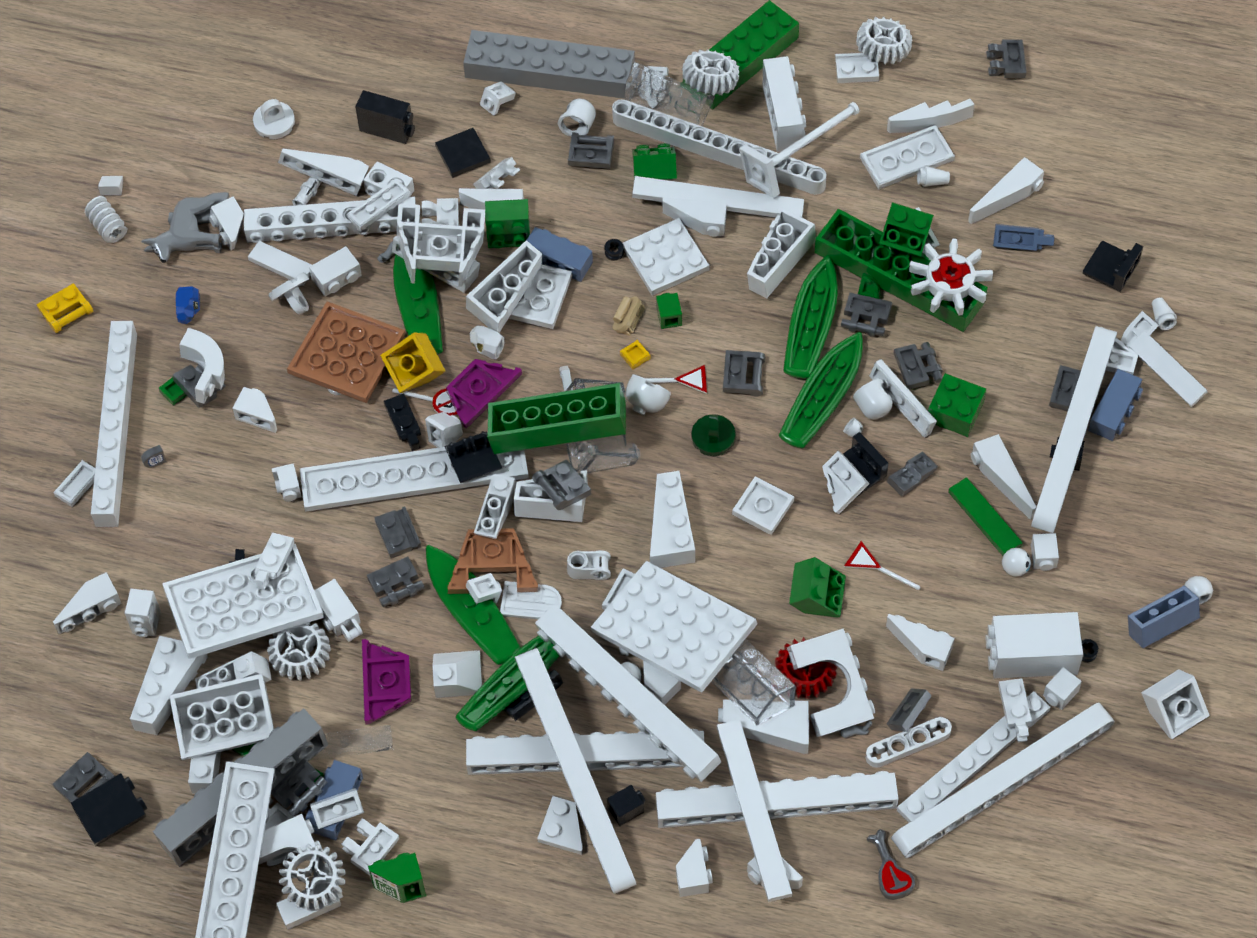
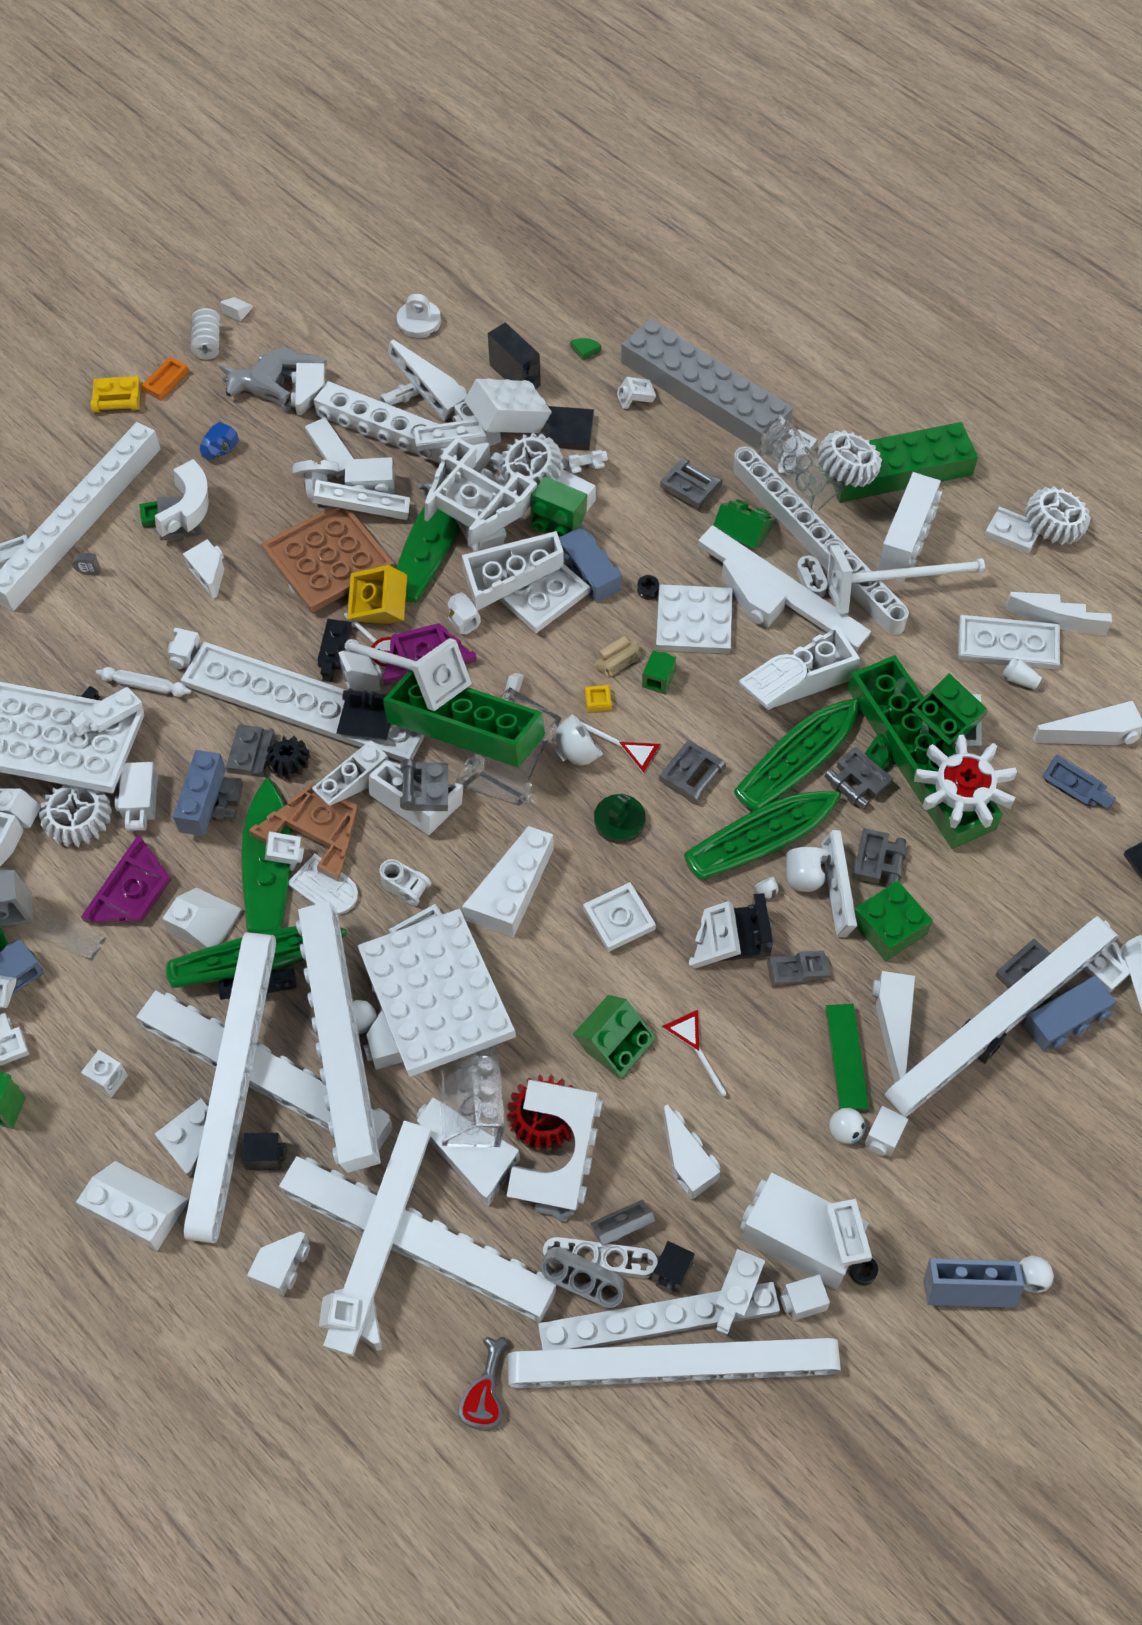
camera: 30 degrees right, 0 degrees up
(96, 274) = (165, 378): none -> orange tile
(272, 524) = (143, 681): none -> white wheel
(343, 293) = (361, 500): none -> white plate
(391, 581) = (199, 793): none -> sand blue brick
(409, 158) = (507, 406): none -> white brick
(428, 78) = (585, 347): none -> green tile
(432, 521) = (287, 757): none -> black gear
(469, 190) = (533, 458): none -> white gear
(470, 818) = (104, 1073): none -> white brick
(525, 393) = (439, 673): none -> white tile
(558, 894) = (132, 1204): none -> white slope
(580, 111) = (705, 442): white helmet -> none
(734, 176) = (816, 575): none -> white beam
(764, 271) = (774, 678): none -> white window
(764, 871) = (339, 1312): none -> white slope
(919, 762) = (590, 1290): none -> light grey beam
(962, 719) = (672, 1267): none -> black brick
(1069, 624) = (848, 1232): none -> white plate
(1176, 703) = (925, 1392): white slope -> none

